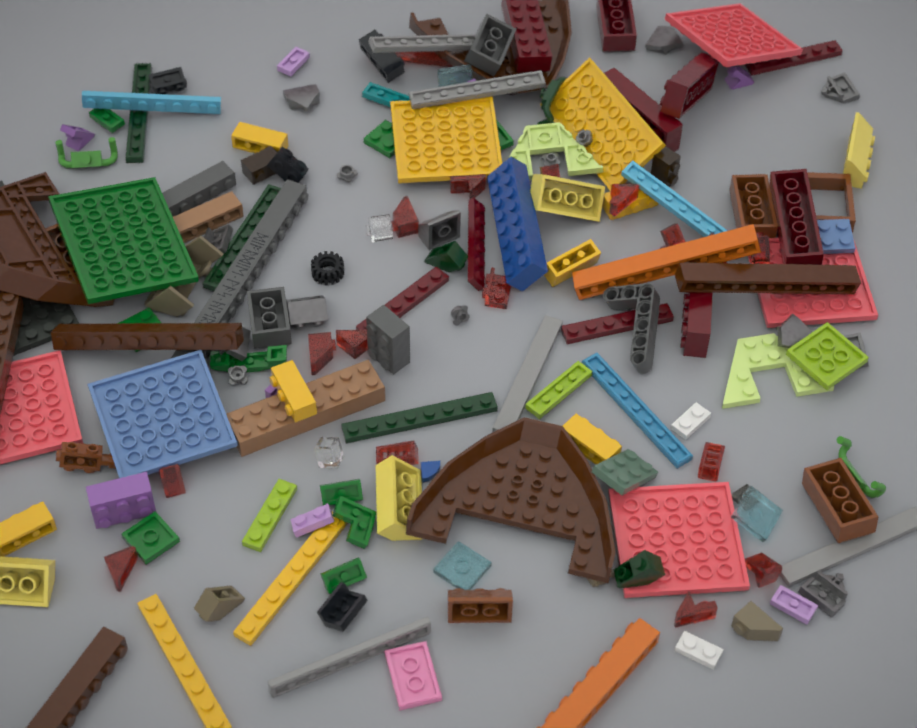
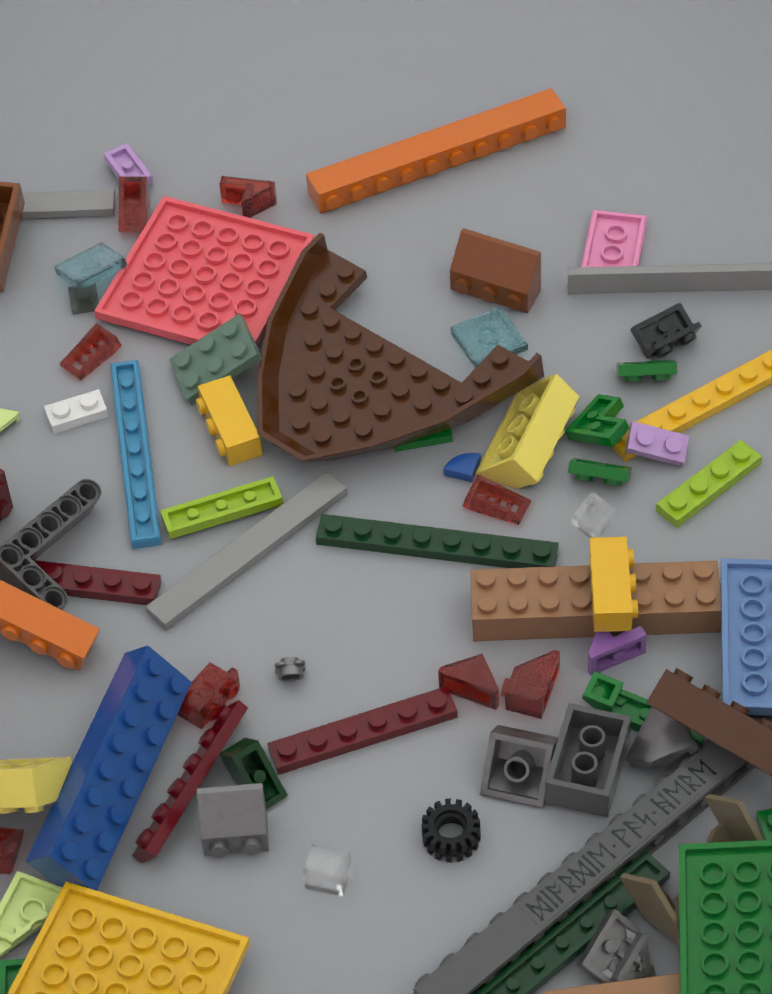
camera: 150 degrees left, 0 degrees up
(388, 339) = (429, 625): dark grey brick -> none
(404, 219) = (277, 873): clear red slope -> none
(468, 184) = (131, 888): clear red slope -> none
(576, 259) = (68, 678): yellow brick -> none
(639, 570) = (281, 233): dark green slope -> none
(698, 650) = (268, 165): white plate -> none
(756, 624) = (189, 161): dark tan slope -> none
(826, 592) = (78, 172): flat silver slope -> none

